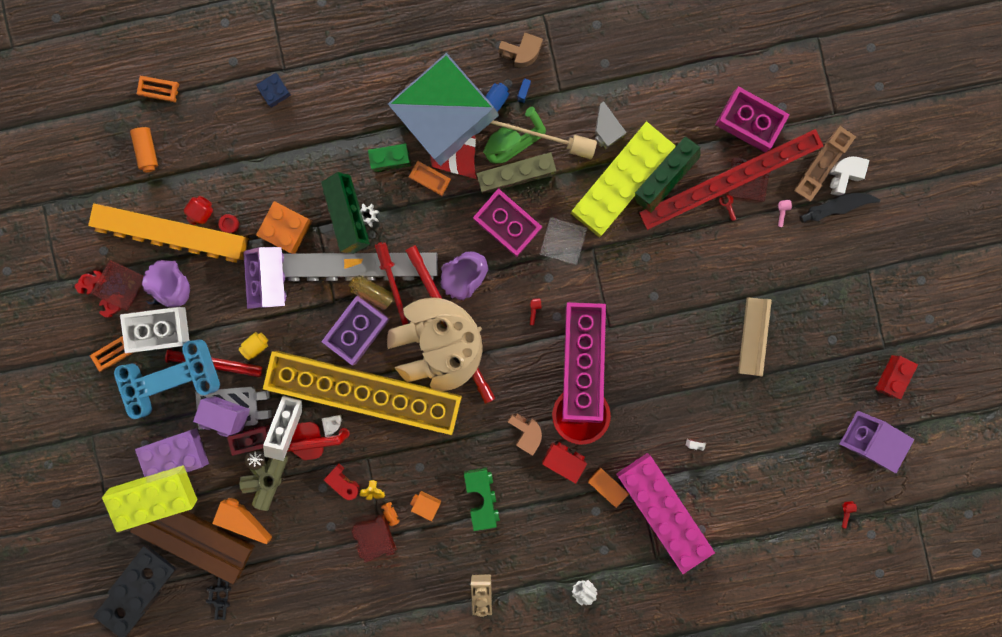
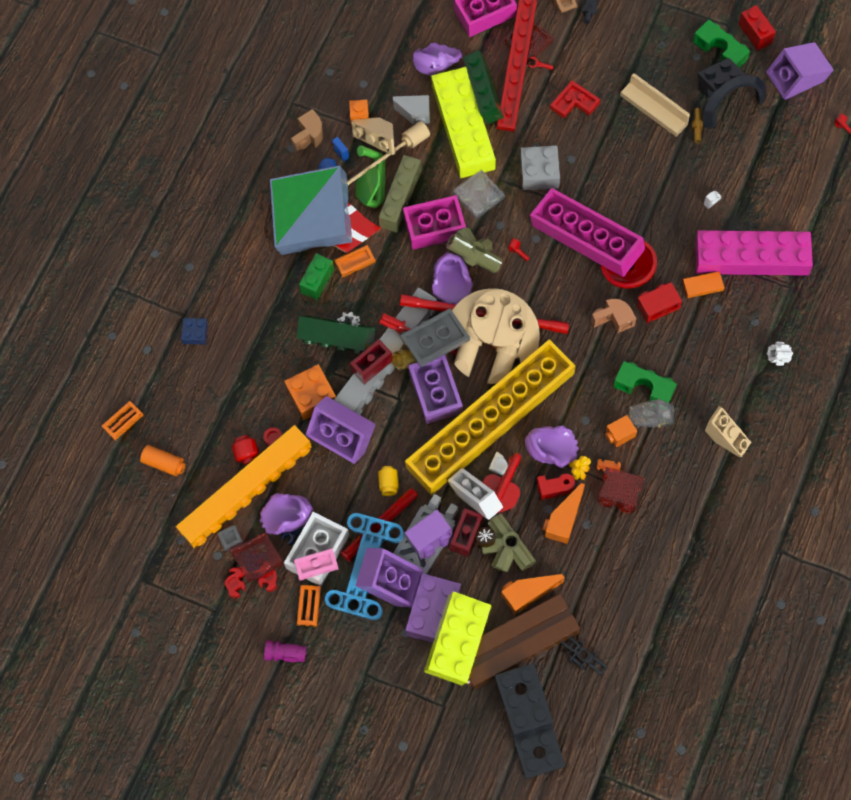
camera: 50 degrees left, 20 degrees down
(61, 366) = (284, 652): none -> magenta axle
(122, 251) = (230, 538): none -> dark grey tile
(132, 343) = (316, 564): none -> bright pink plate
(164, 408) = (389, 577): none -> medium lavender brick
(319, 507) = (563, 517): none -> orange slope
(334, 264) = (371, 361): none -> dark red brick
(372, 459) = (552, 445): none -> medium lavender piece
(393, 302) = (435, 337): none -> dark grey plate
(457, 521) = (652, 414): none -> clear slope
(500, 276) = (474, 251): none -> olive piece
(558, 112) = (375, 132): none -> tan slope
(569, 82) = (358, 109): none -> orange brick
(623, 277) = (540, 168): none -> light grey brick
(669, 112) = (435, 58): none -> medium lavender piece
(716, 259) = (574, 96): none -> red plate
(760, 385) = (697, 125): none -> pearl gold bar
(783, 206) = (567, 28): bright pink hand -> none
(816, 385) = (721, 80): none -> black piece
(861, 341) = (711, 36): none -> green arch

